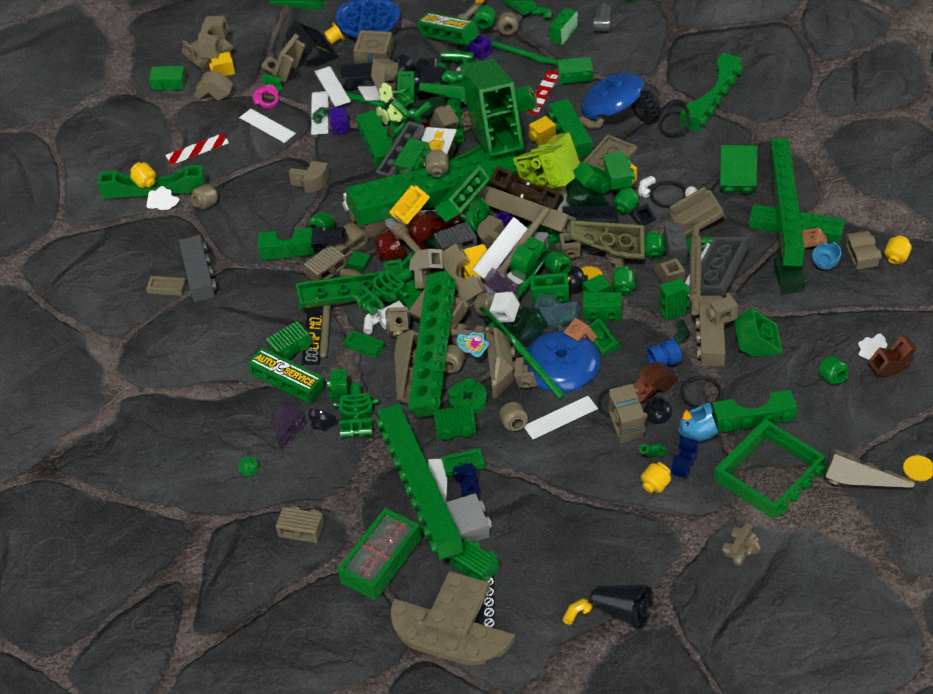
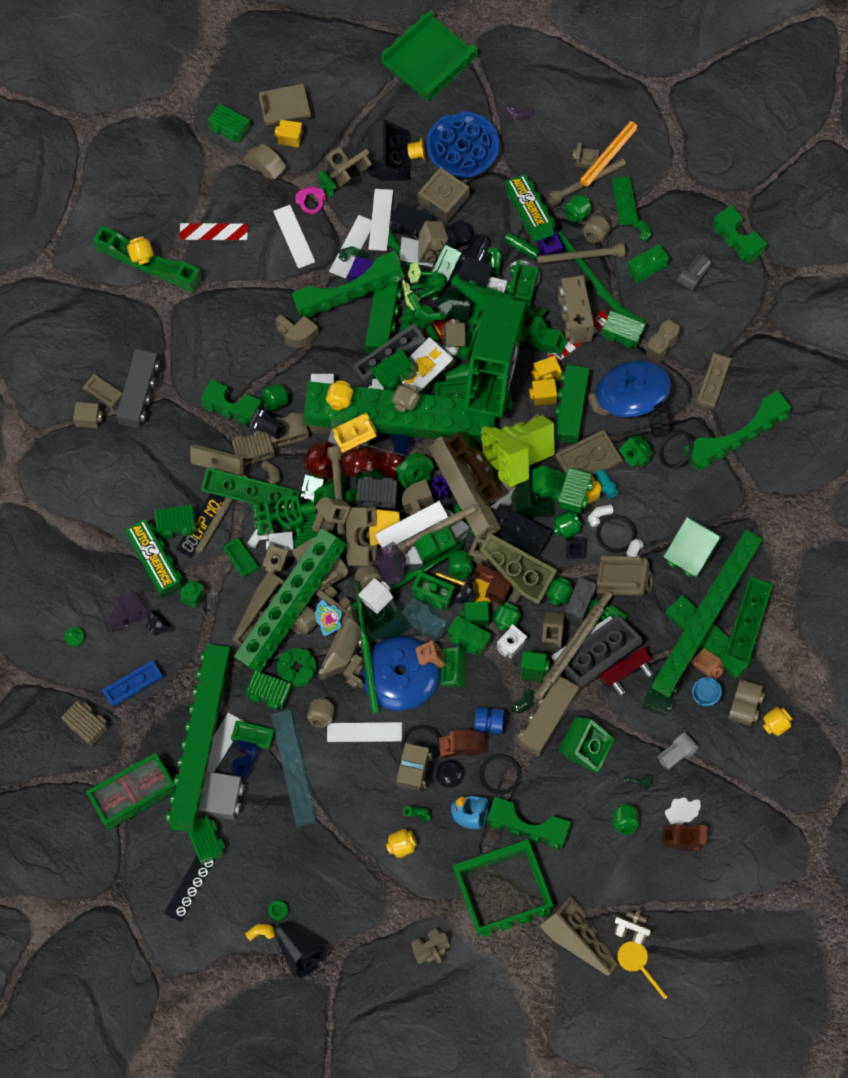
camera: 25 degrees right, 20 degrees up
(161, 199) = (147, 282): white sticker -> none
(162, 304) = (87, 415): none -> dark tan brick
(204, 196) = (187, 302): dark tan head -> none
(208, 39) = (298, 86): dark tan arch -> none
(286, 286) = (216, 459): none -> dark tan tile
(326, 475) = (132, 684): none -> blue plate
(356, 412) = (199, 618): green torso -> none
(359, 104) = (314, 300): none -> green arch
(359, 261) = (287, 458): green tile -> none
(380, 181) = (339, 395): none -> yellow head
(449, 626) = (150, 888): dark tan plate -> none
(452, 76) = (493, 284): green arm -> none
(462, 193) = (407, 449): green brick -> none
(466, 145) = (459, 373): none -> green cone
(518, 472) = (293, 768): none -> clear light blue tile
(530, 69) = (575, 310): none -> dark tan piece
(532, 114) = (546, 369): none -> yellow brick
(533, 30) = (616, 250): none -> dark tan piece
(581, 586) = (278, 910): none -> green tile
(596, 260) = (498, 584): none -> copper brick
(611, 61) = (662, 341): none -> dark tan brick
(640, 295) = (508, 649): none -> white brick
(641, 165) = (607, 485): none -> teal pin
(645, 133) = (636, 451): none -> green brick
(668, 74) = (713, 381): none -> dark tan tile
(687, 455) = (435, 839): clear blue leg -> none
(723, 310) = (563, 707): dark tan brick -> none
(748, 270) = (625, 667): none -> dark red piece
(821, 197) = (747, 623): none -> green piece
(826, 341) = (645, 782): none -> clear green hand
(836, 304) = (681, 748): none -> light grey piece
(900, 439) = (623, 924): none -> hips

